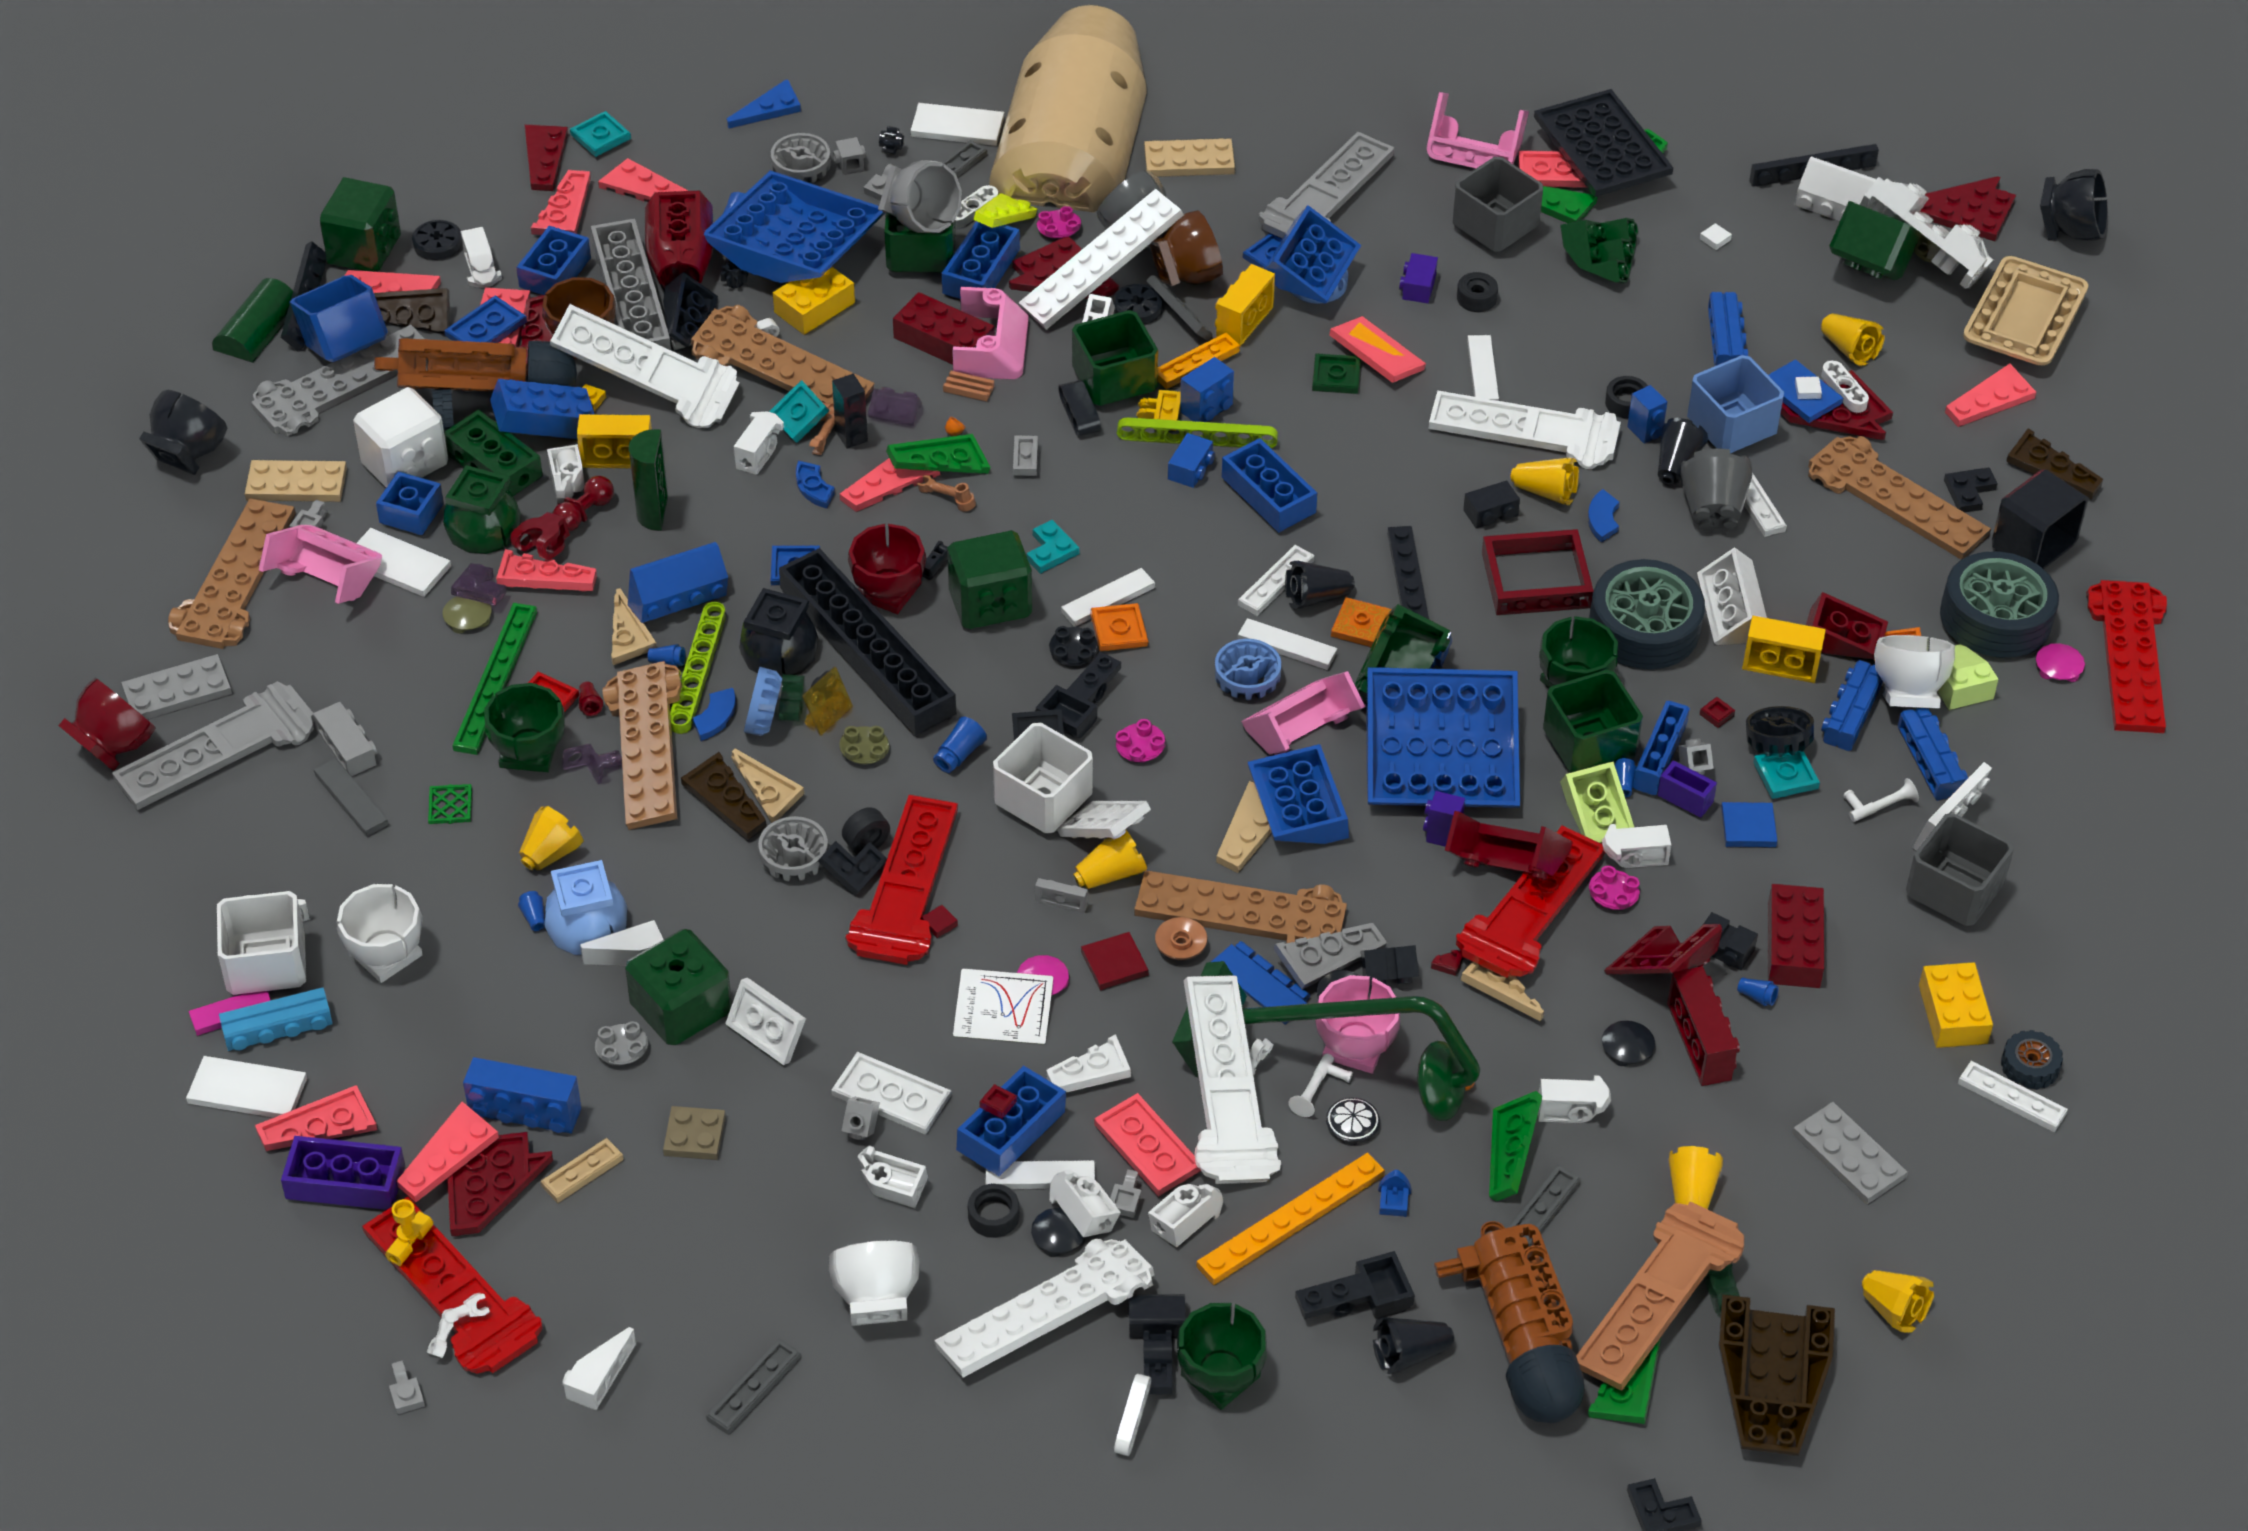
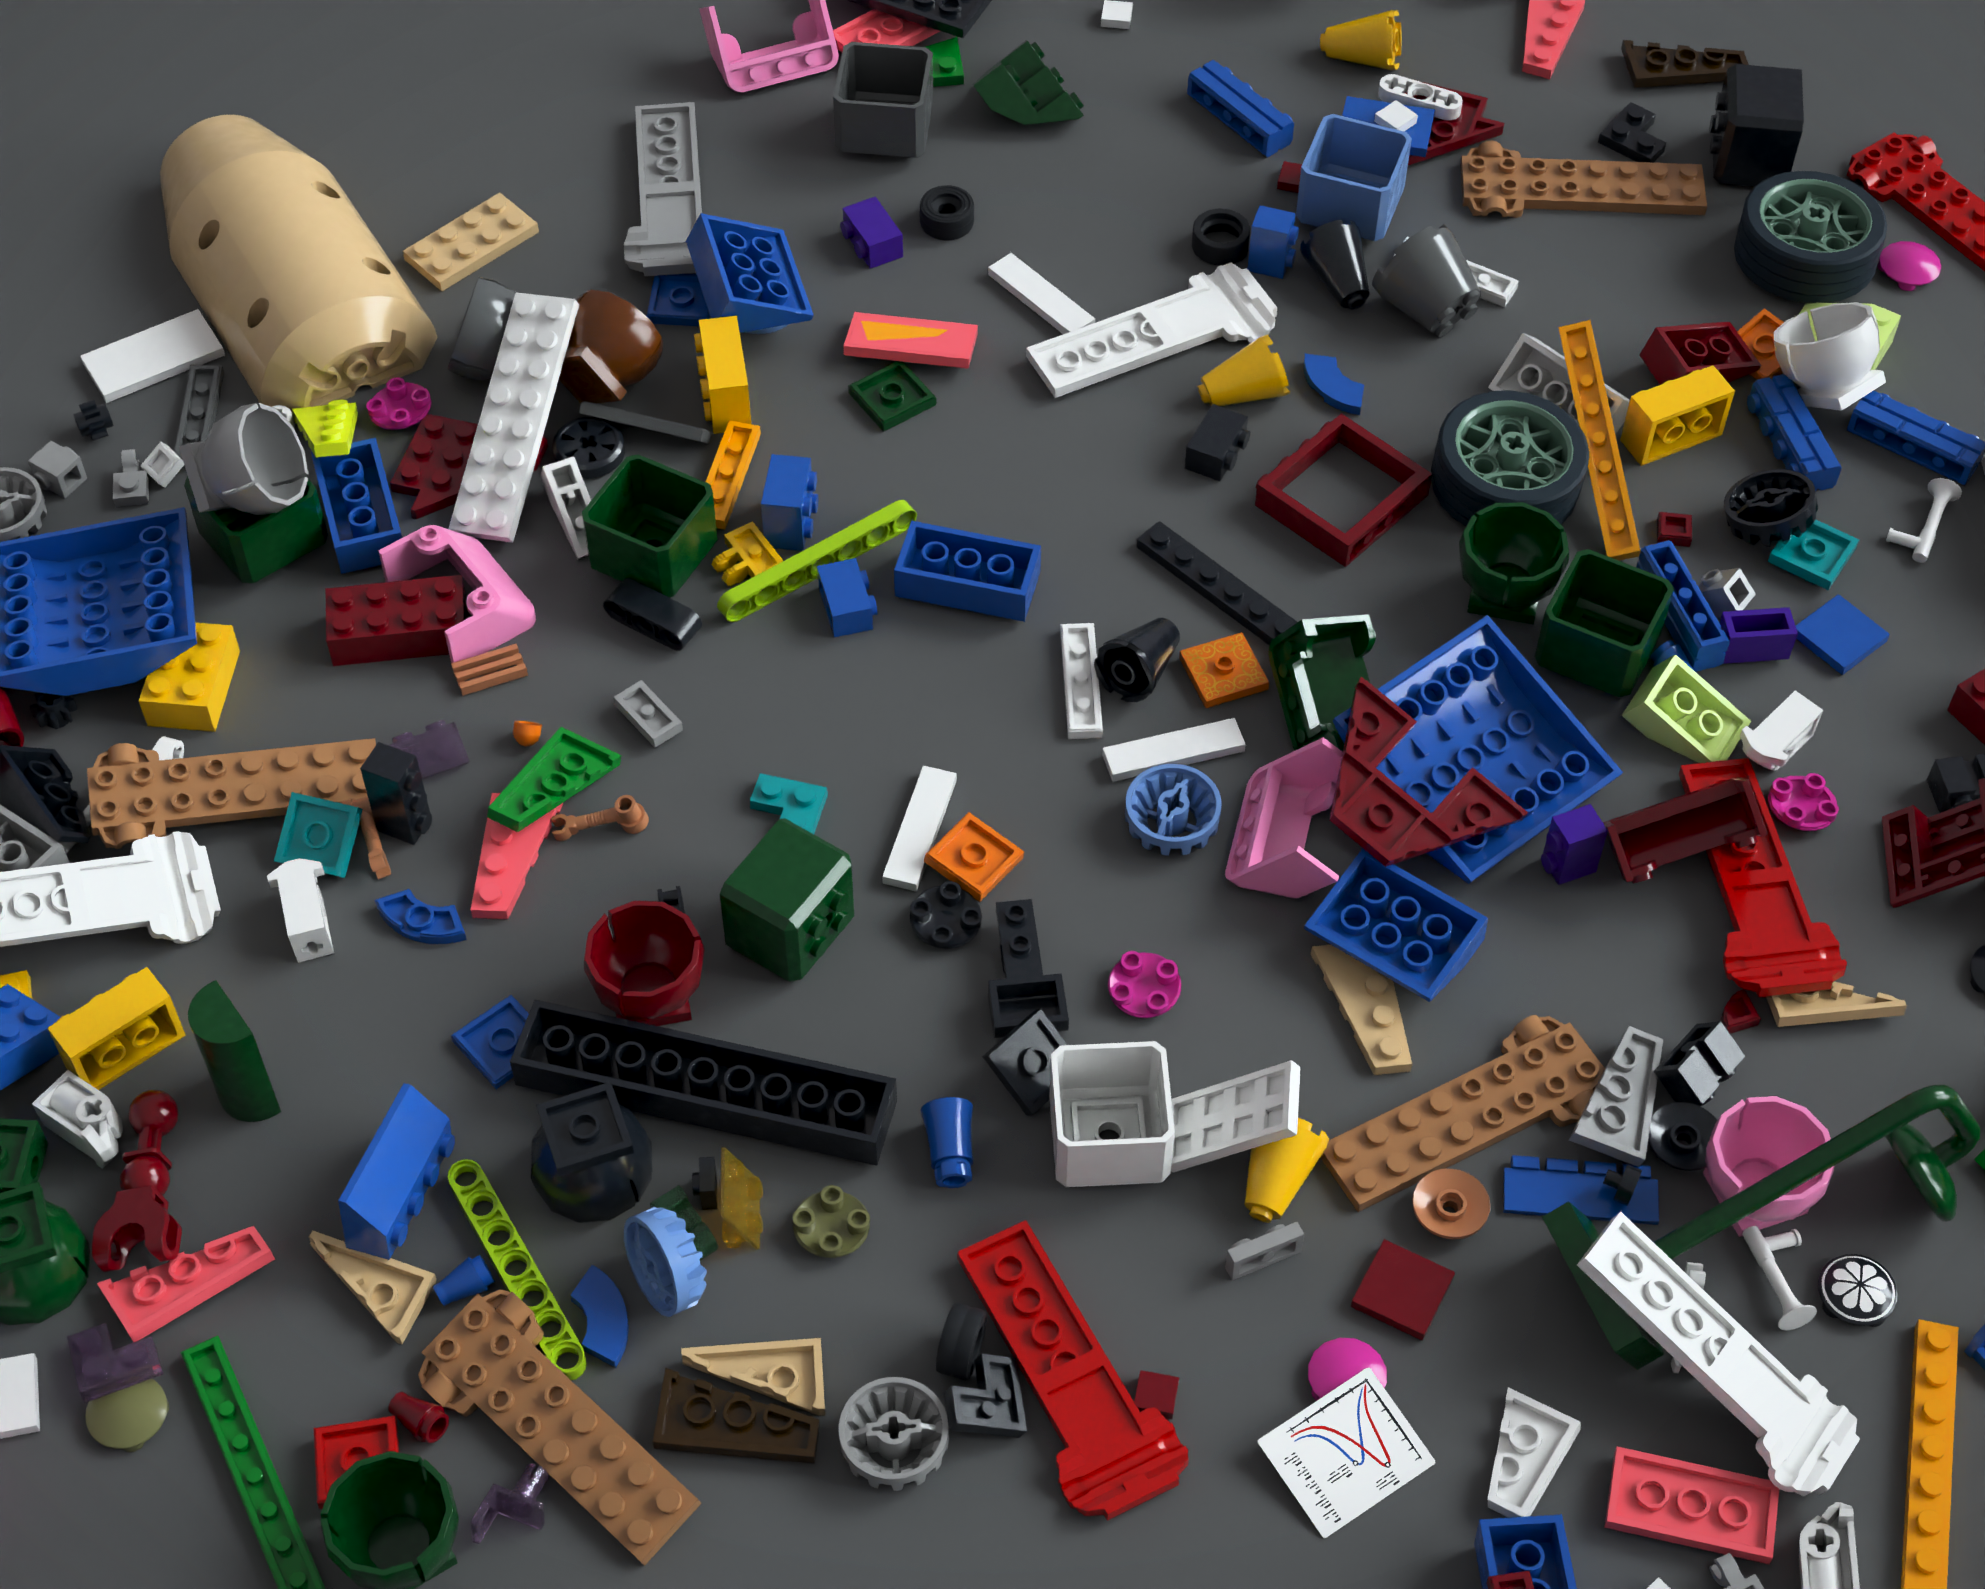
camera: 40 degrees left, 5 degrees up
(1281, 988) = (1623, 1183): none -> black tile
(1343, 733) = (1385, 816): none -> dark red wing
(1714, 629) = (1597, 425): none -> light orange plate

